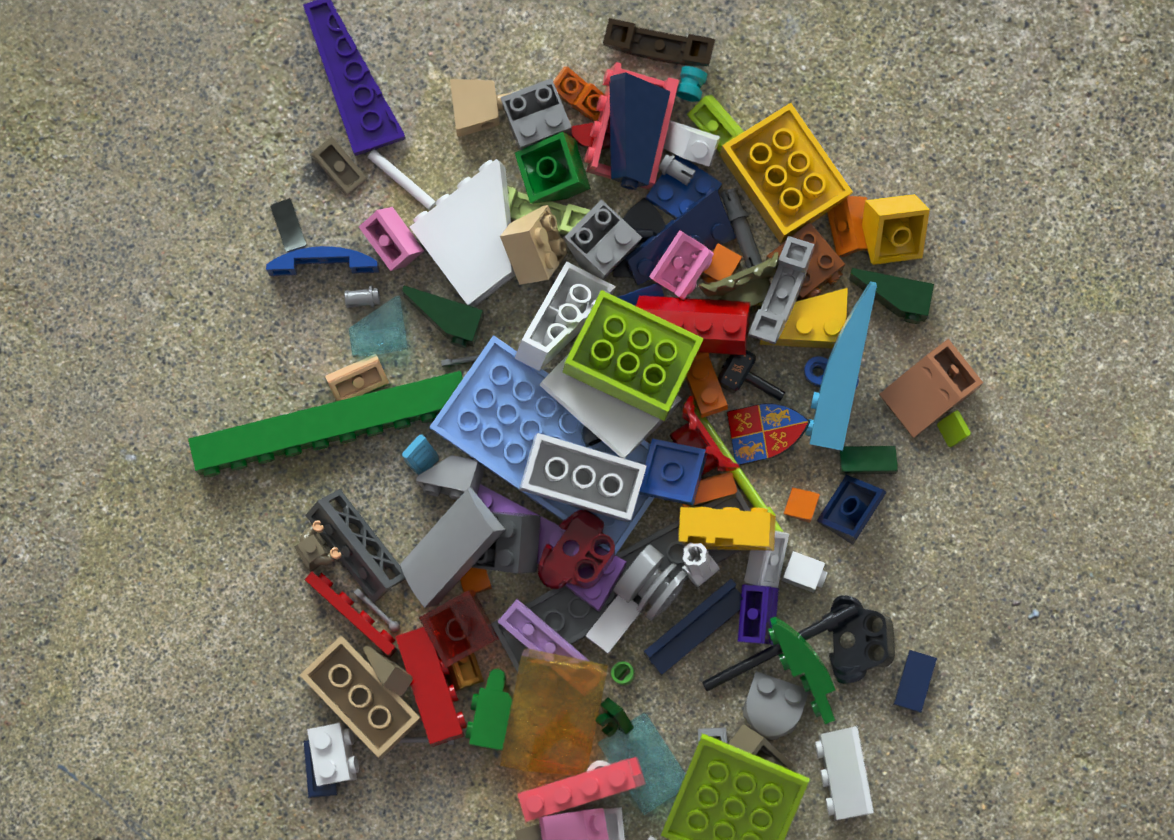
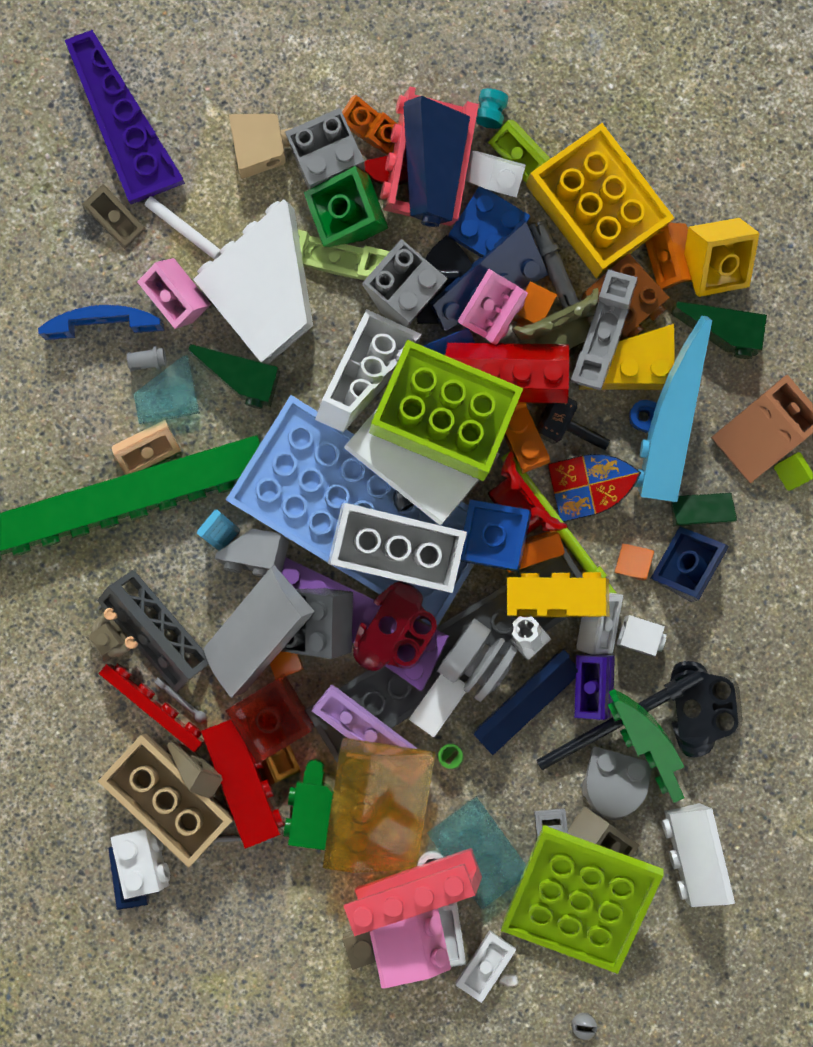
camera: 10 degrees left, 5 degrees up
(288, 224) = (62, 283): pearl dark grey sticker -> none
(449, 362) = (245, 425): light grey hinge -> none
(534, 246) = (330, 293): tan slope -> none
(615, 717) = (443, 808): dark green tile -> none
(658, 45) = (454, 69): dark brown slope -> none
(676, 169) = (481, 202): light grey pin -> none
(915, 681) = (765, 747): dark blue tile -> none

